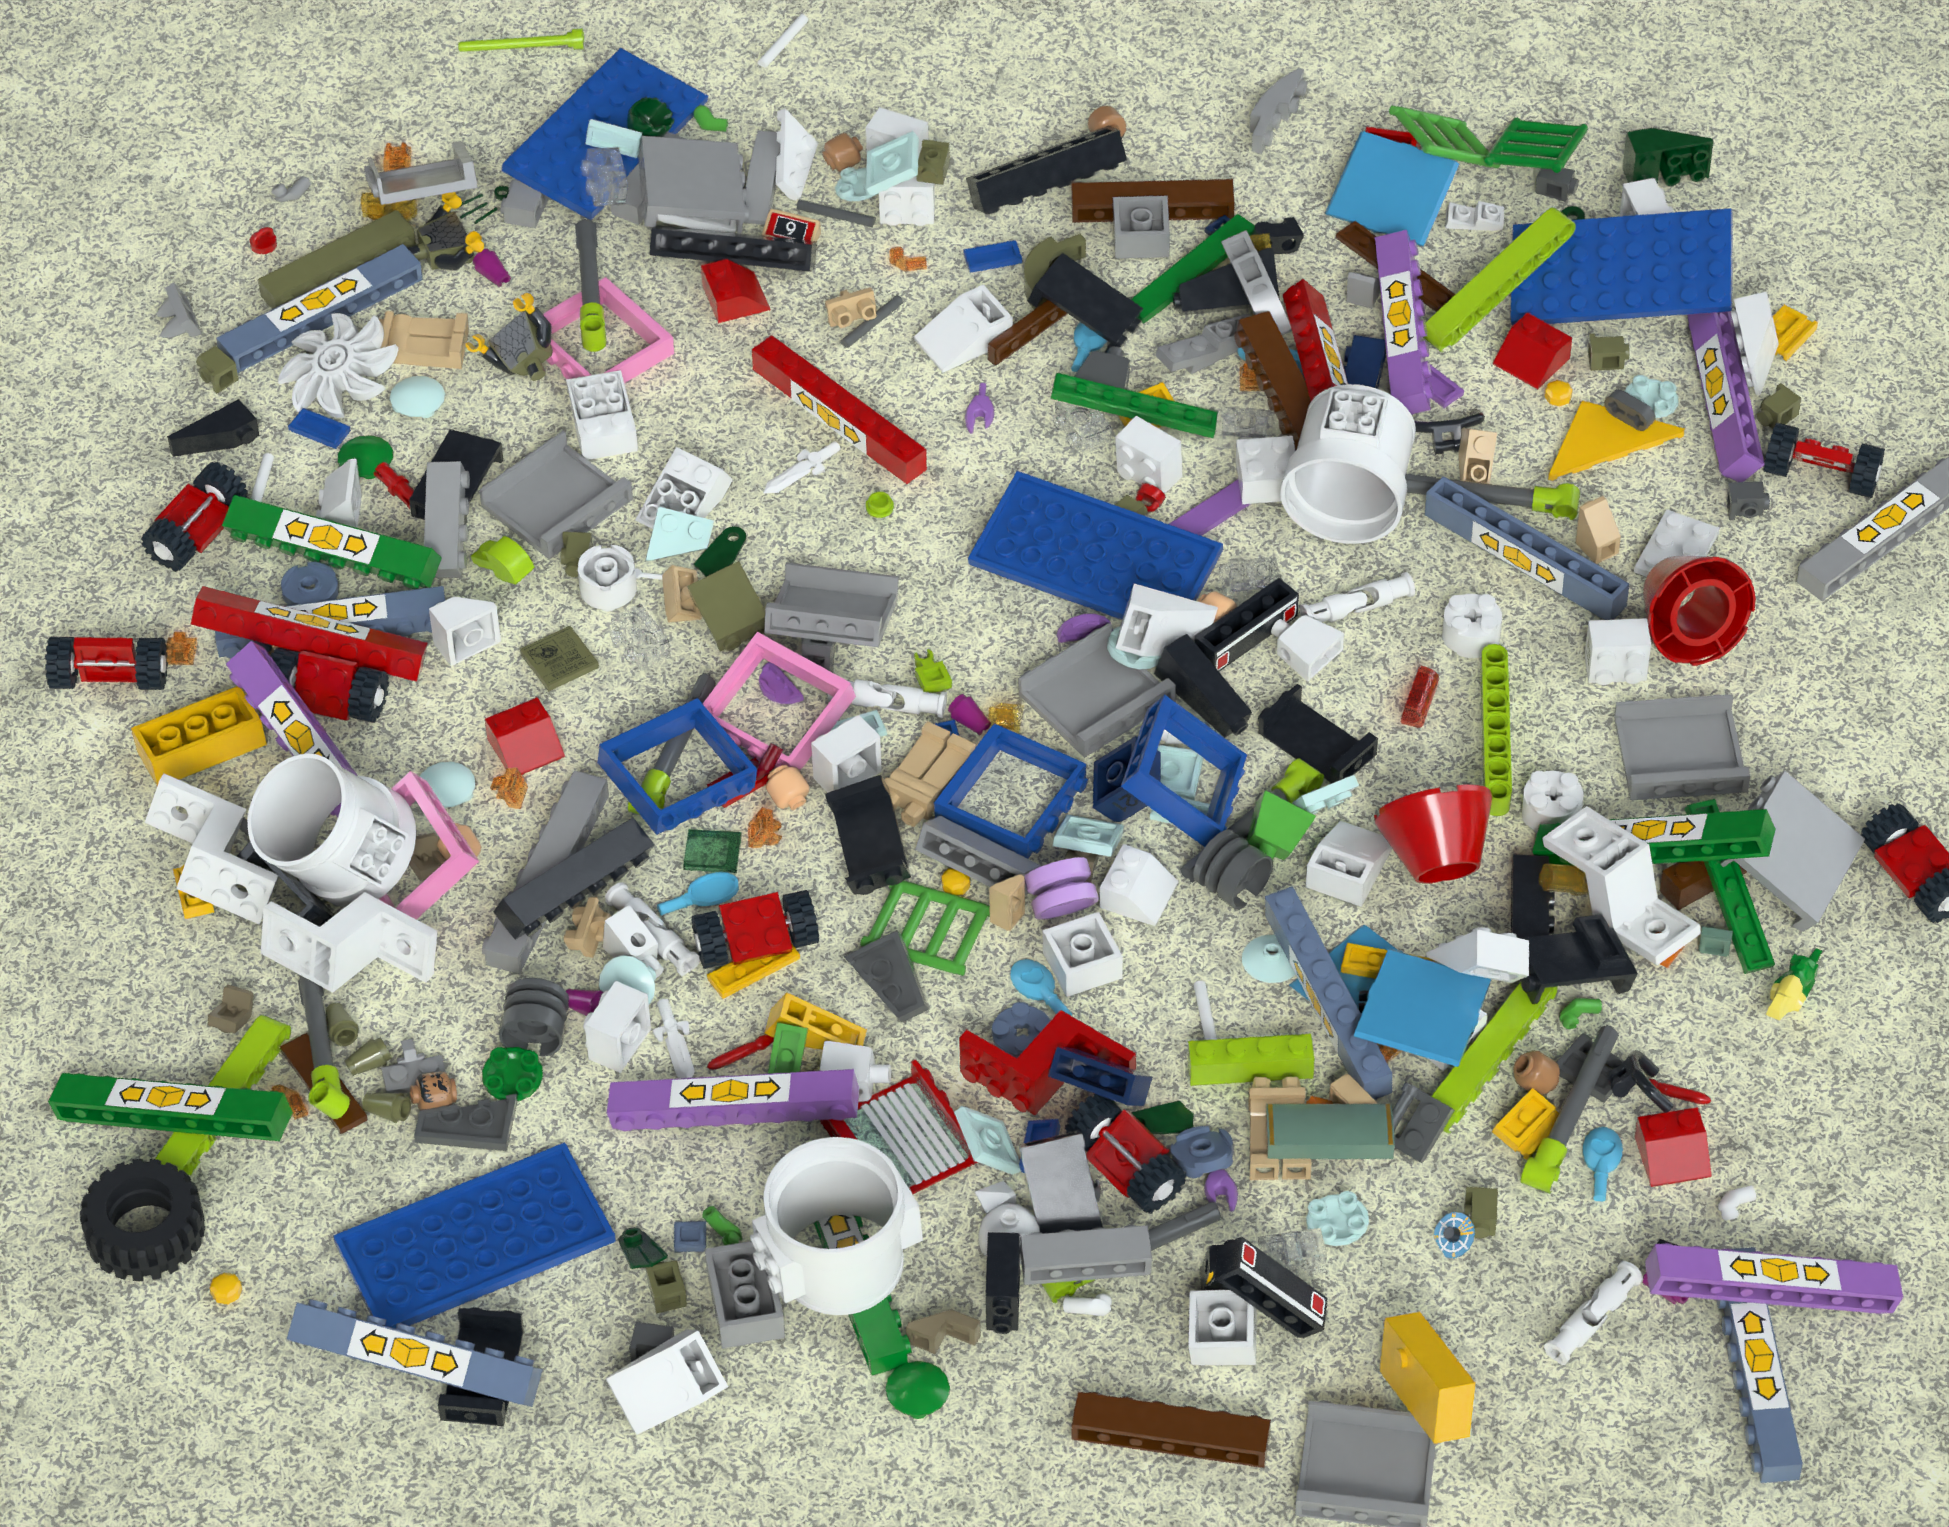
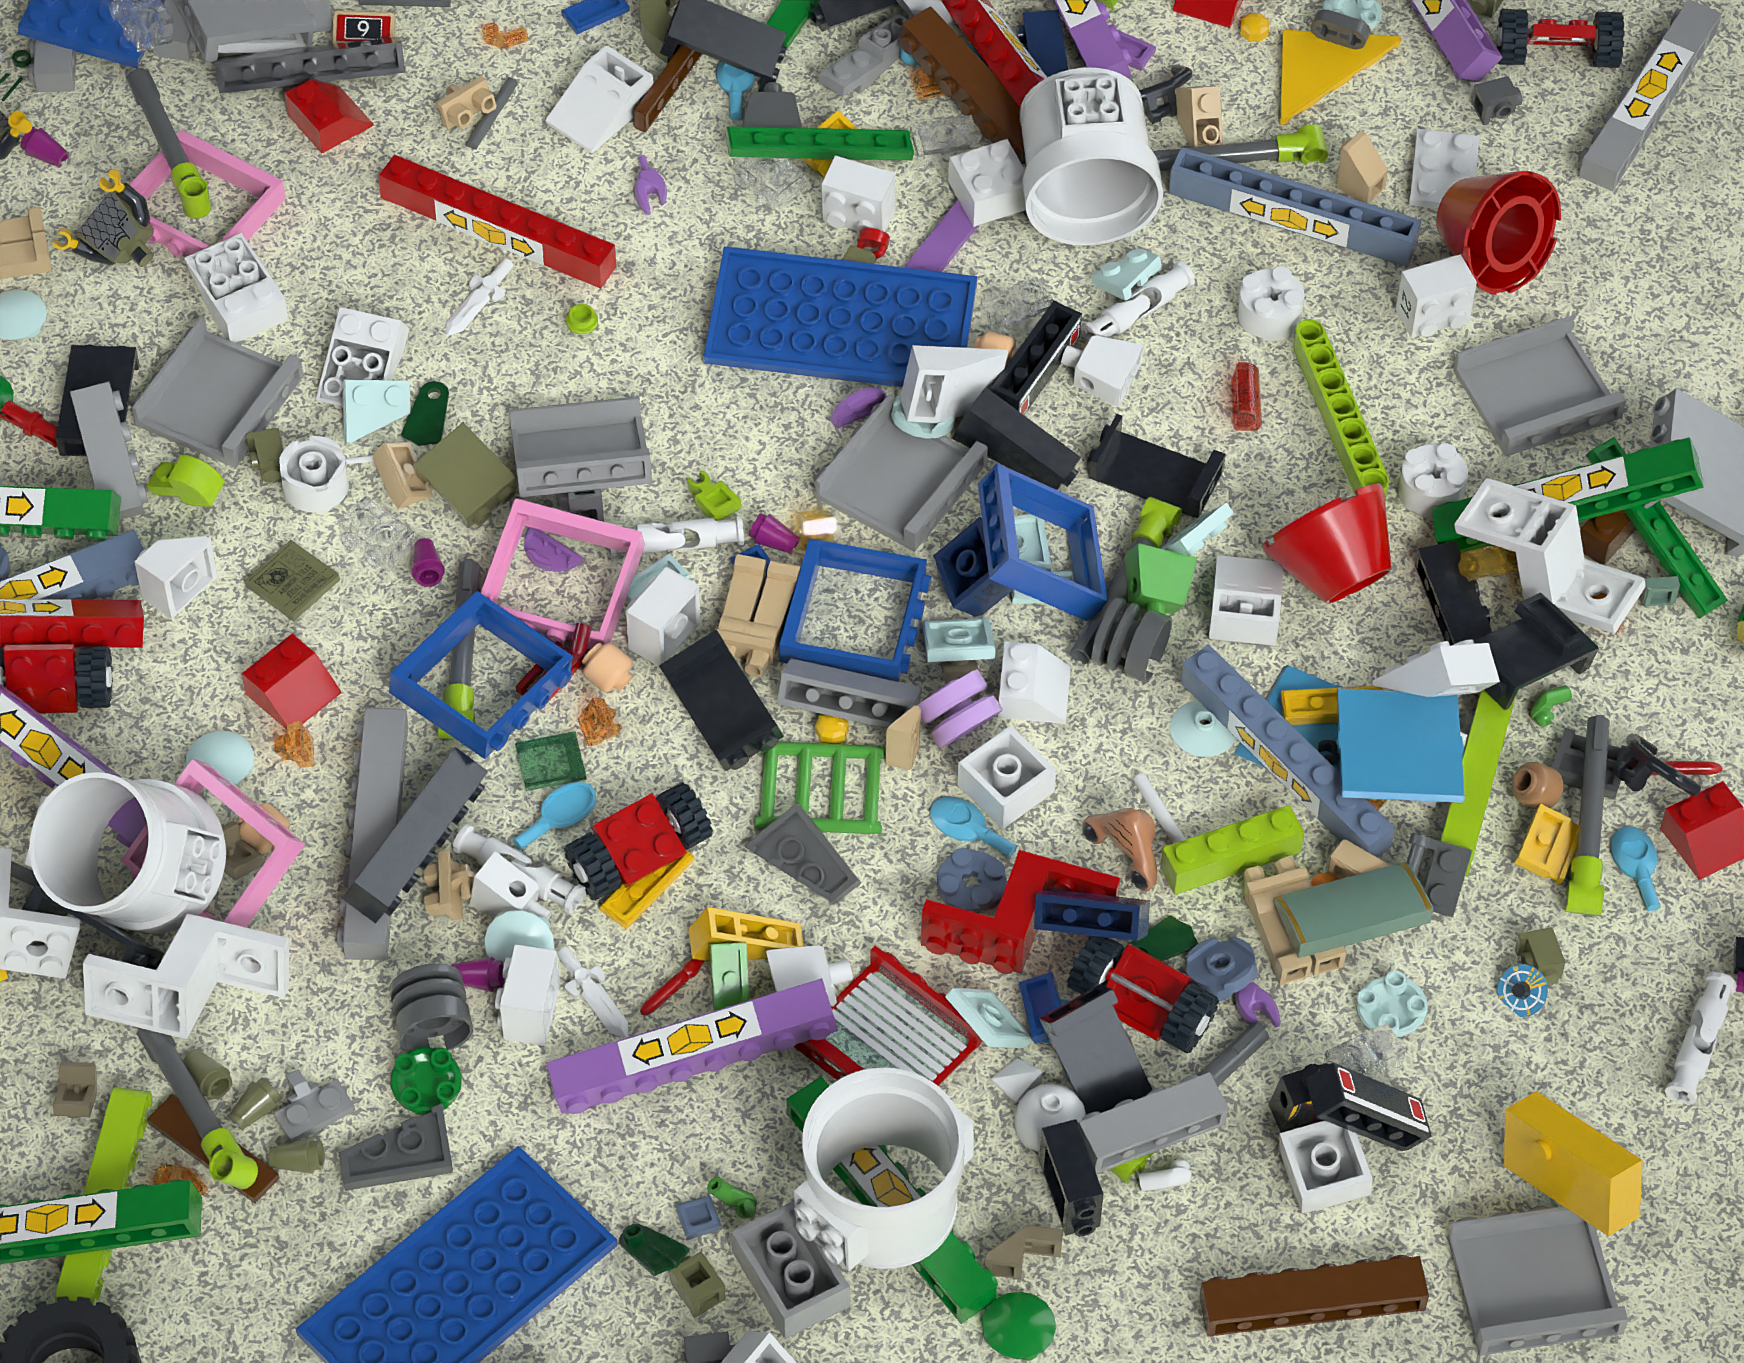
camera: 20 degrees left, 5 degrees up
(433, 1090) = (345, 1125): medium nougat head -> none
(672, 670) = (427, 563): none -> magenta cone
(1169, 1026) = (1133, 834): none -> nougat head
(1367, 570) = (1124, 274): none -> light aqua wing

